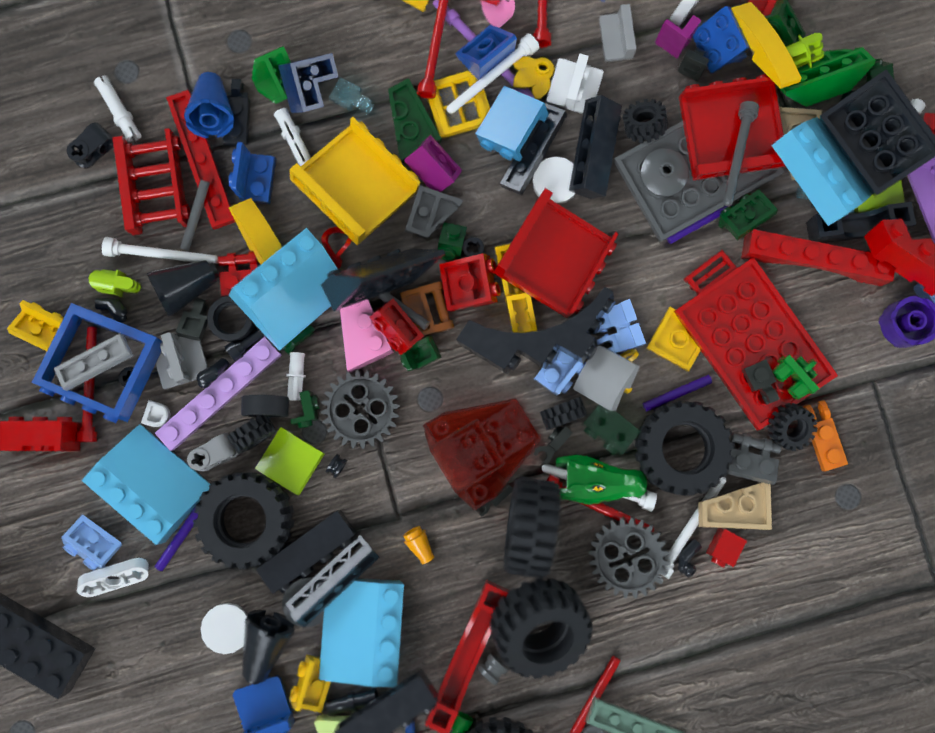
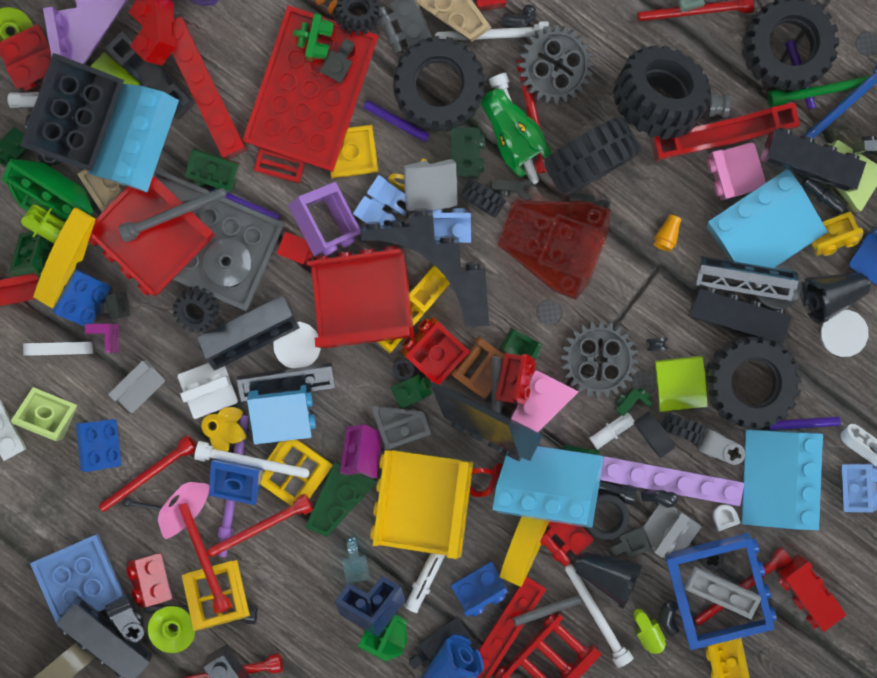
camera: 125 degrees left, 5 degrees up
(427, 641) = (736, 171): none -> bright pink bracket
(634, 235) = (295, 249): none -> red brick
(637, 292) = (339, 211): none -> medium lavender window

